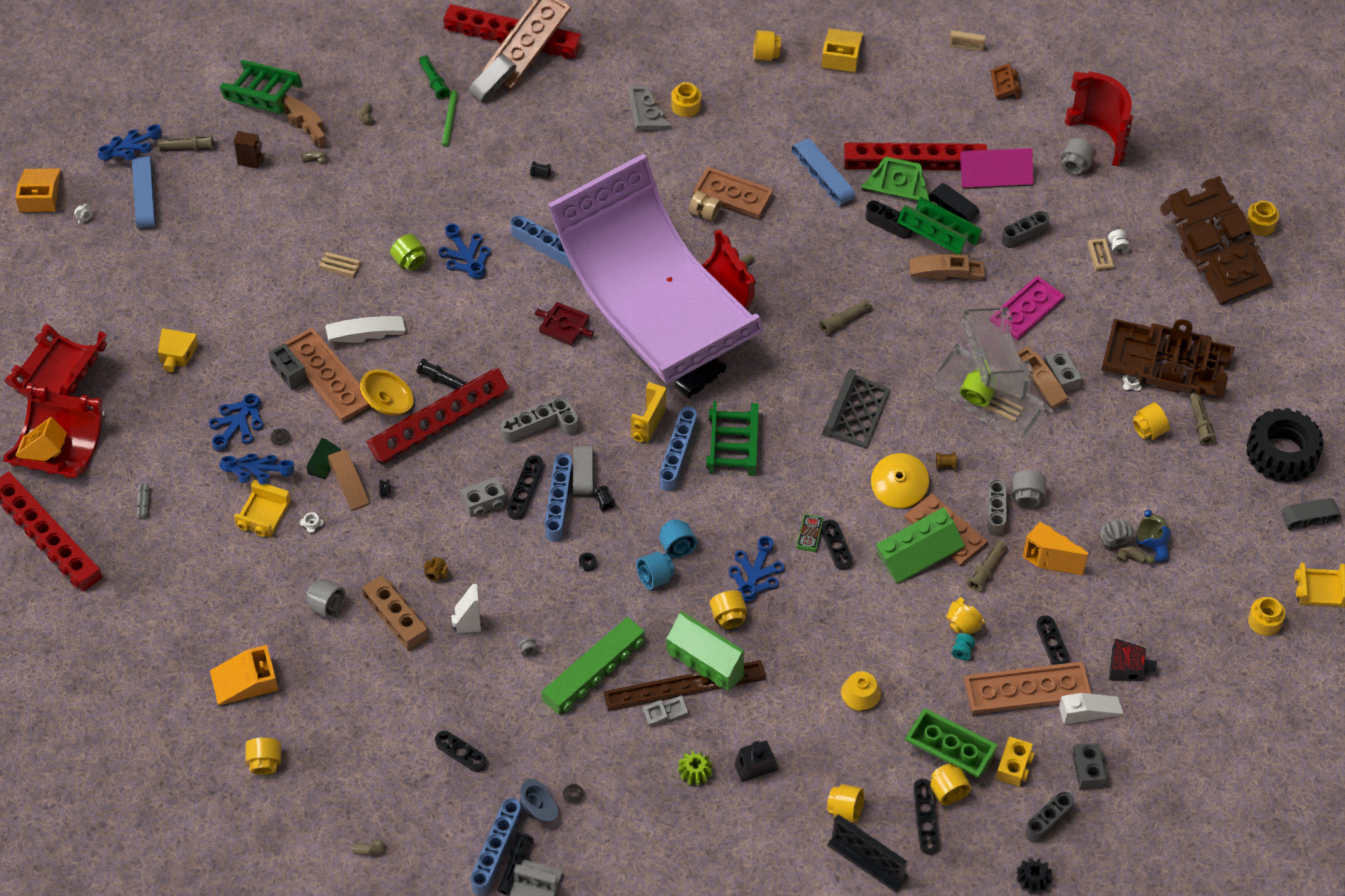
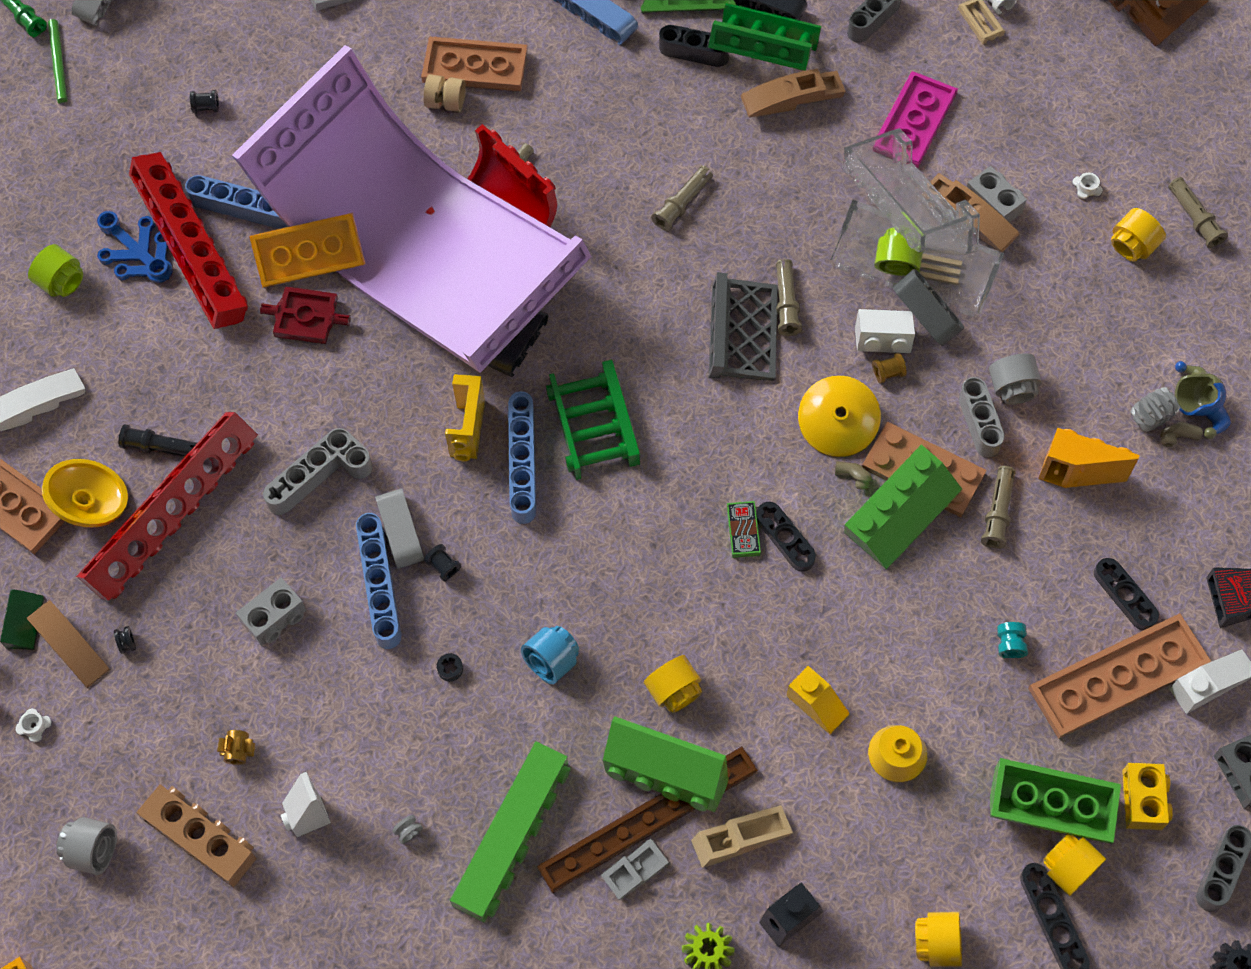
camera: 15 degrees left, 10 degrees up
(501, 255) = (188, 240): none -> red brick
(527, 488) = (322, 578): black beam -> none
(578, 282) = (307, 250): none -> light orange tile
(677, 538) = (566, 595): dark azure piece -> none
(740, 710) = (741, 835): none -> tan slope
(756, 572) = (689, 613): blue plant -> none
(819, 645) = (817, 699): none -> yellow slope
(891, 404) = (787, 307): none -> dark tan pin
(897, 517) = (856, 471): none -> dark tan arm
(950, 435) = (884, 331): none -> white brick
(964, 617) = (1000, 598): yellow cone -> none
(986, 428) = (928, 307): none -> dark grey beam
(1135, 347) = (1078, 141): reddish brown piece -> none

